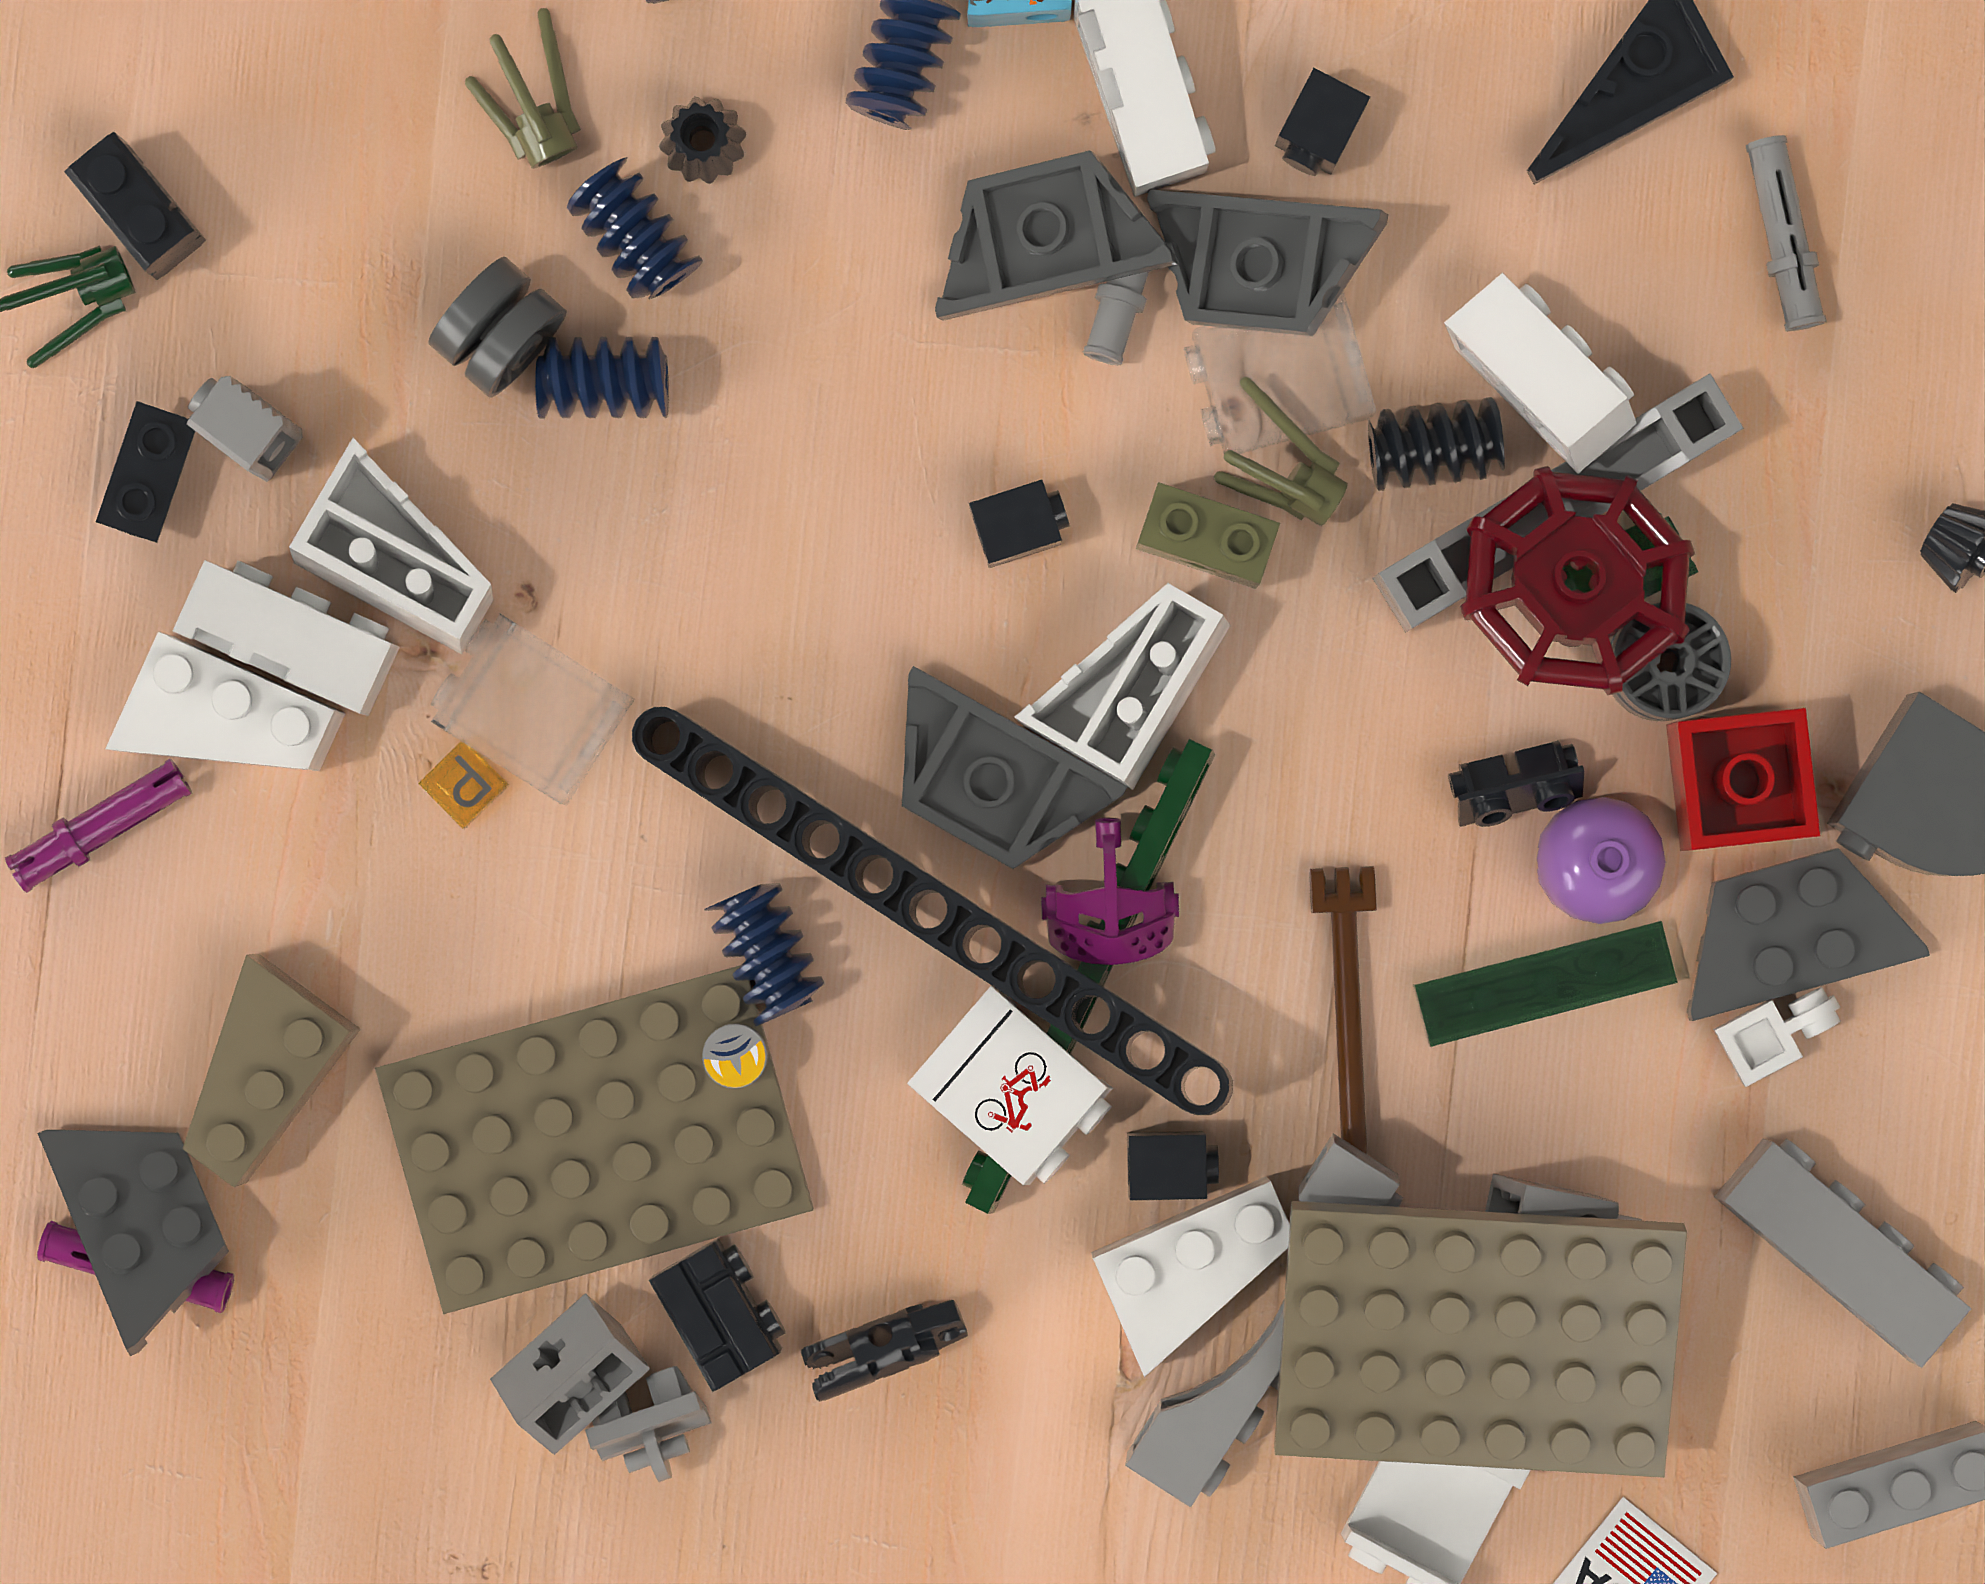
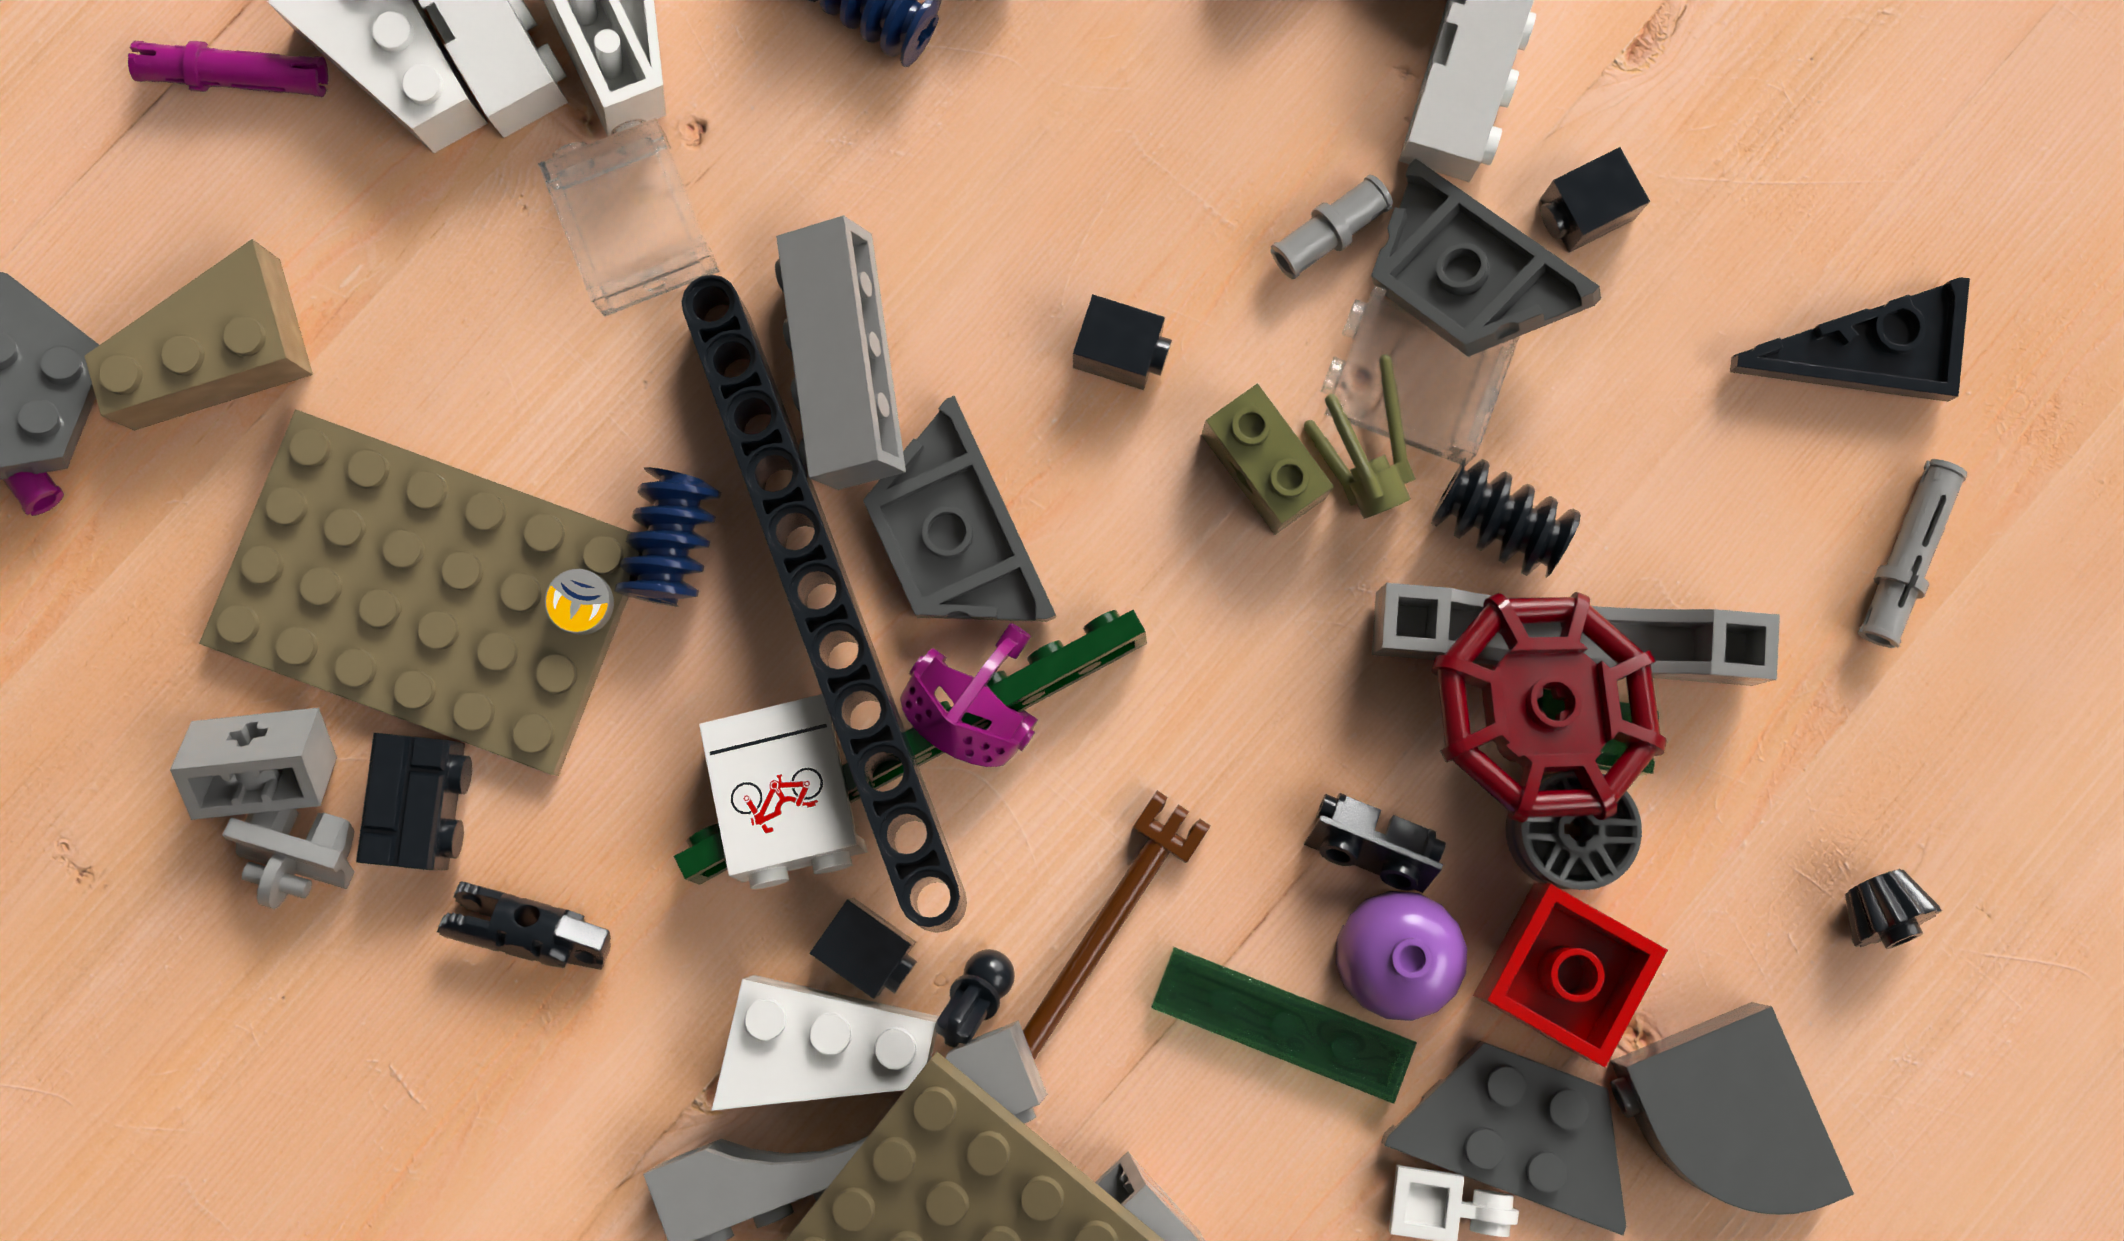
camera: 35 degrees right, 5 degrees down
(464, 784) = (533, 241): clear yellow tile -> none
(795, 700) = (839, 354): none -> light grey brick
(1045, 235) = (1306, 133): dark grey wing -> none
(1131, 687) = (1118, 534): white wedge -> none
(1284, 1138) = (975, 996): none -> black axle
(1543, 371) = (1638, 518): white brick -> none

